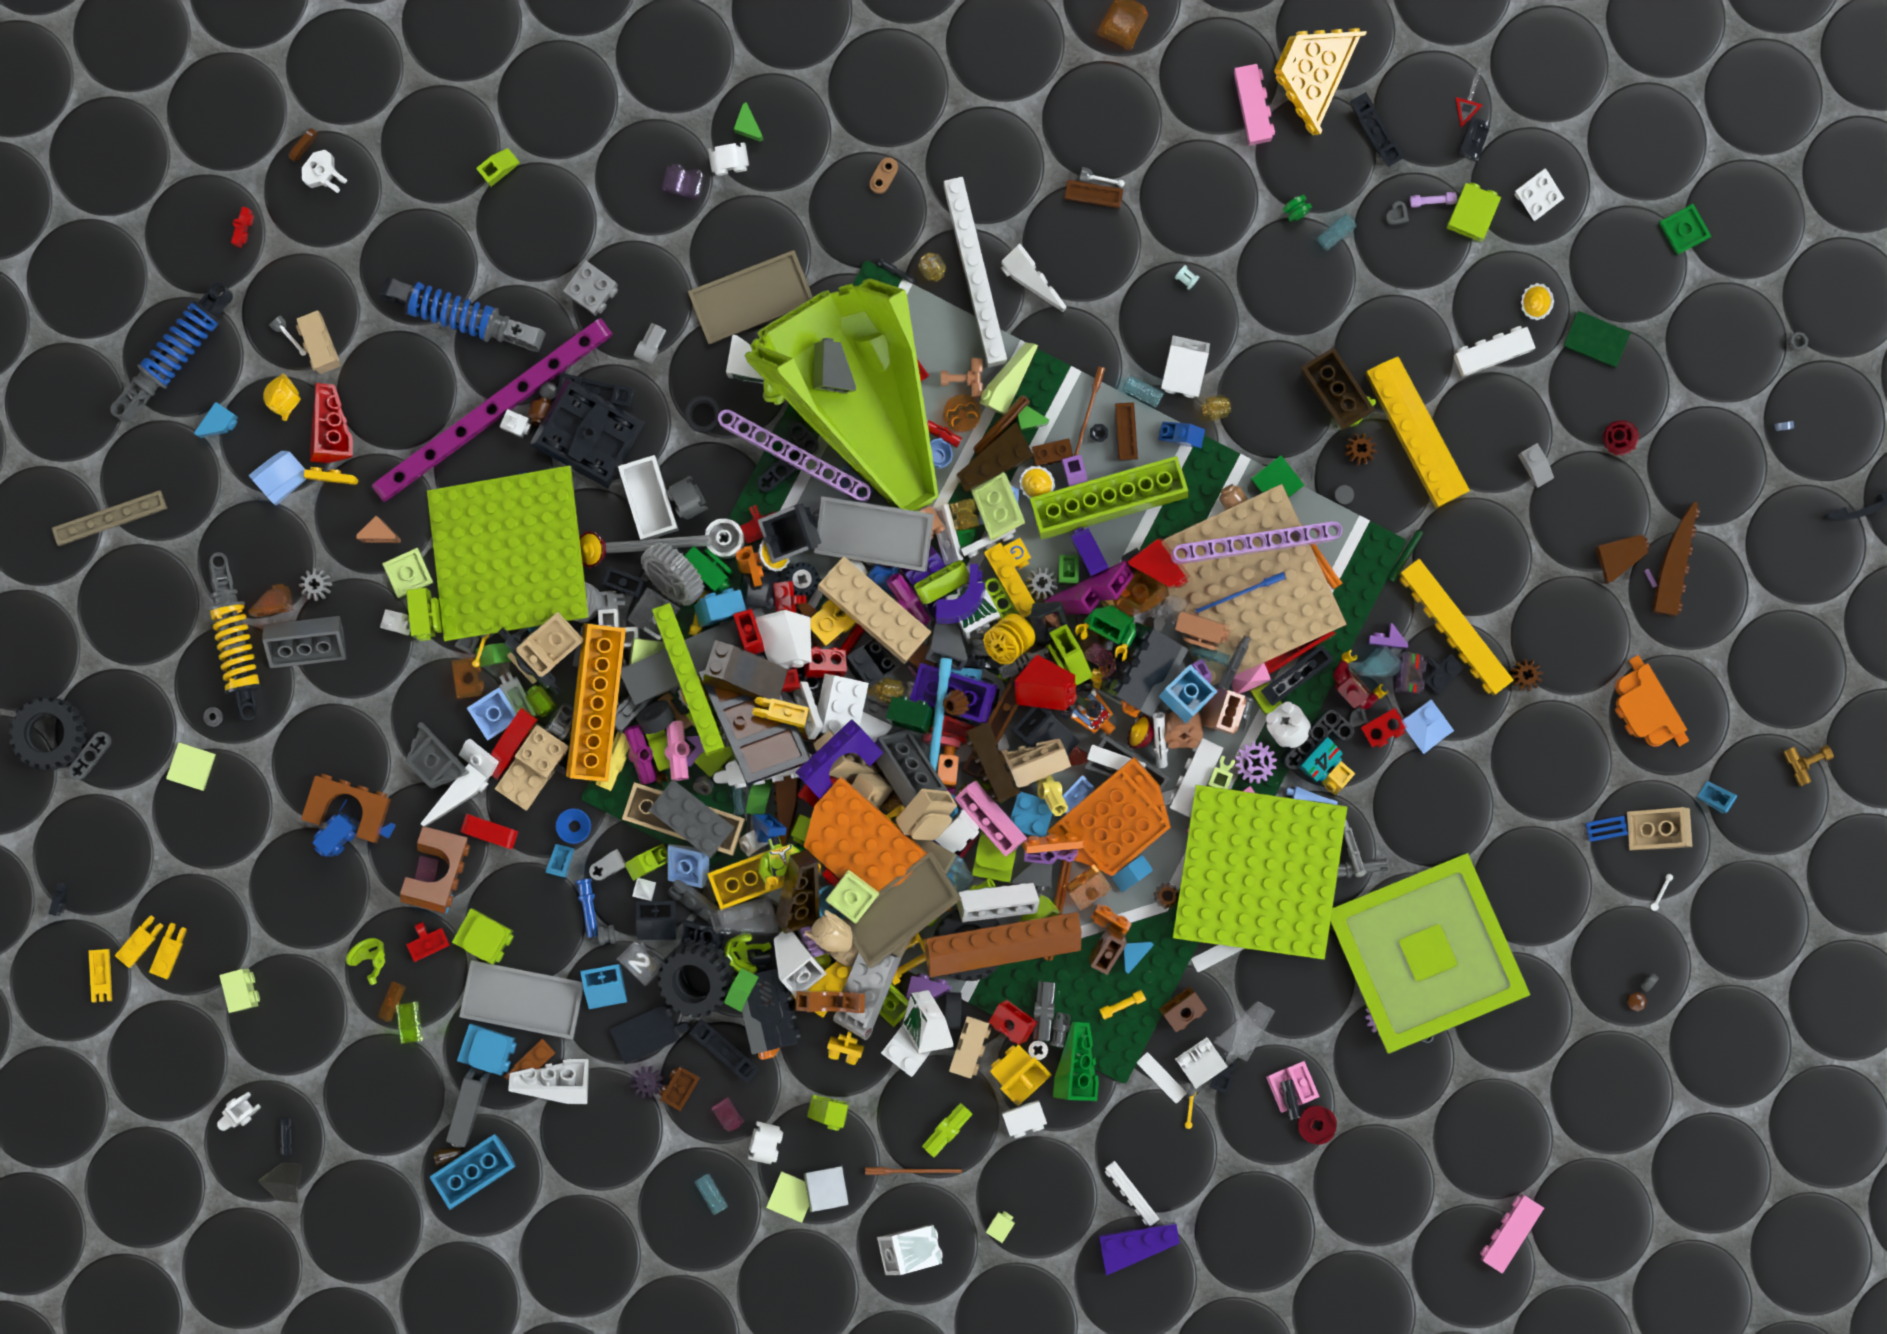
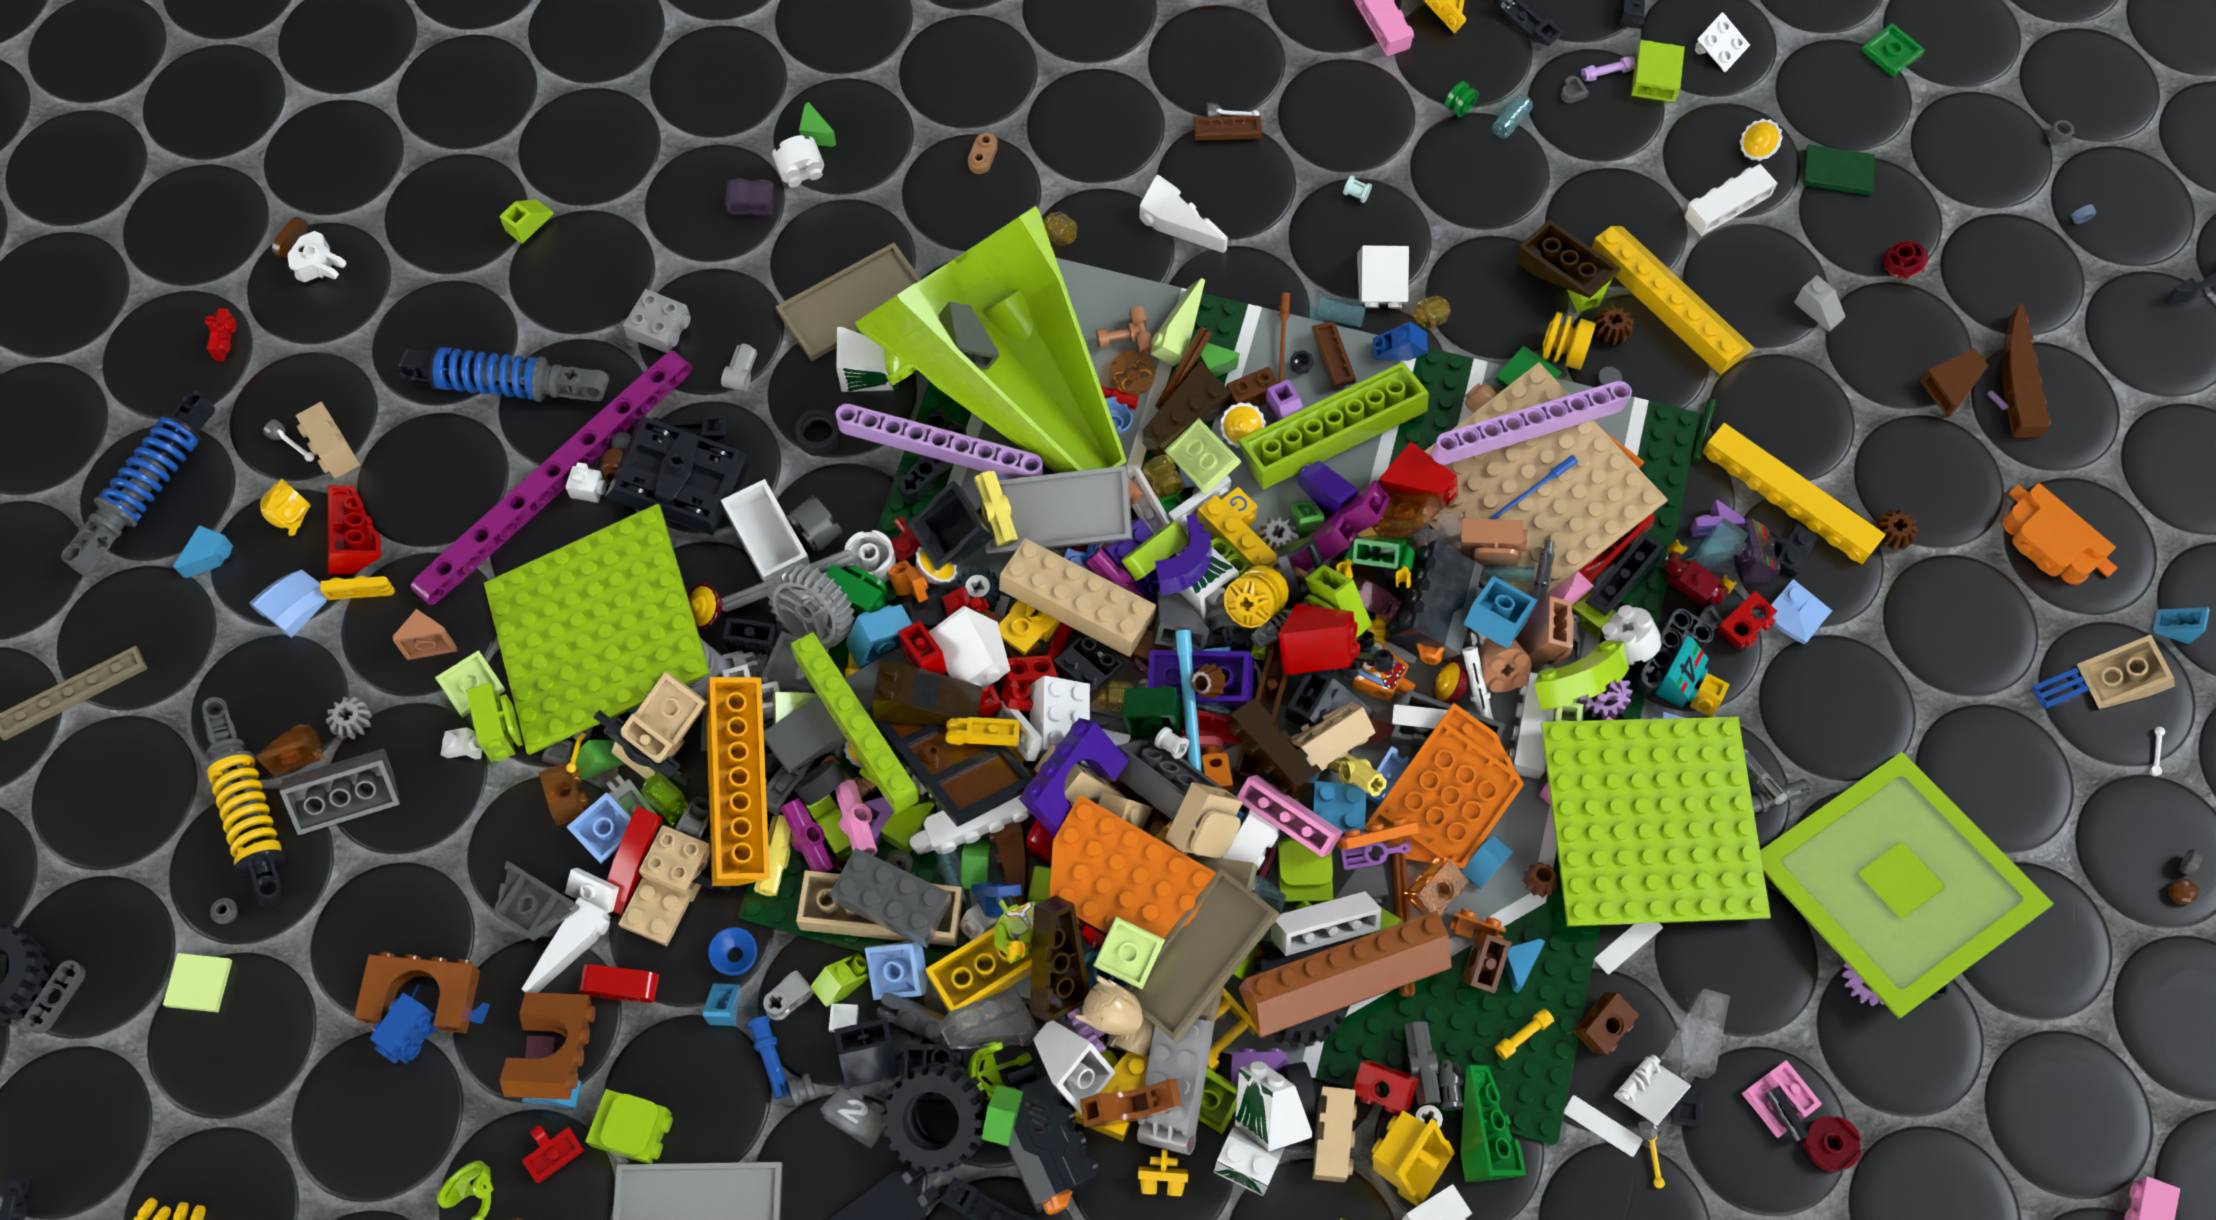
camera: 15 degrees left, 20 degrees down
(604, 986) = (809, 1159): dark azure slope -> none
(812, 683) = (1016, 698): none -> red tile
(827, 523) = (995, 508): none -> light yellow piece
(918, 743) = (1171, 742): none -> white bush
(975, 272) = (1113, 225): white brick -> none
(1239, 756) = (1584, 677): none -> lime brick
(1317, 459) = (1568, 340): none -> yellow wheel

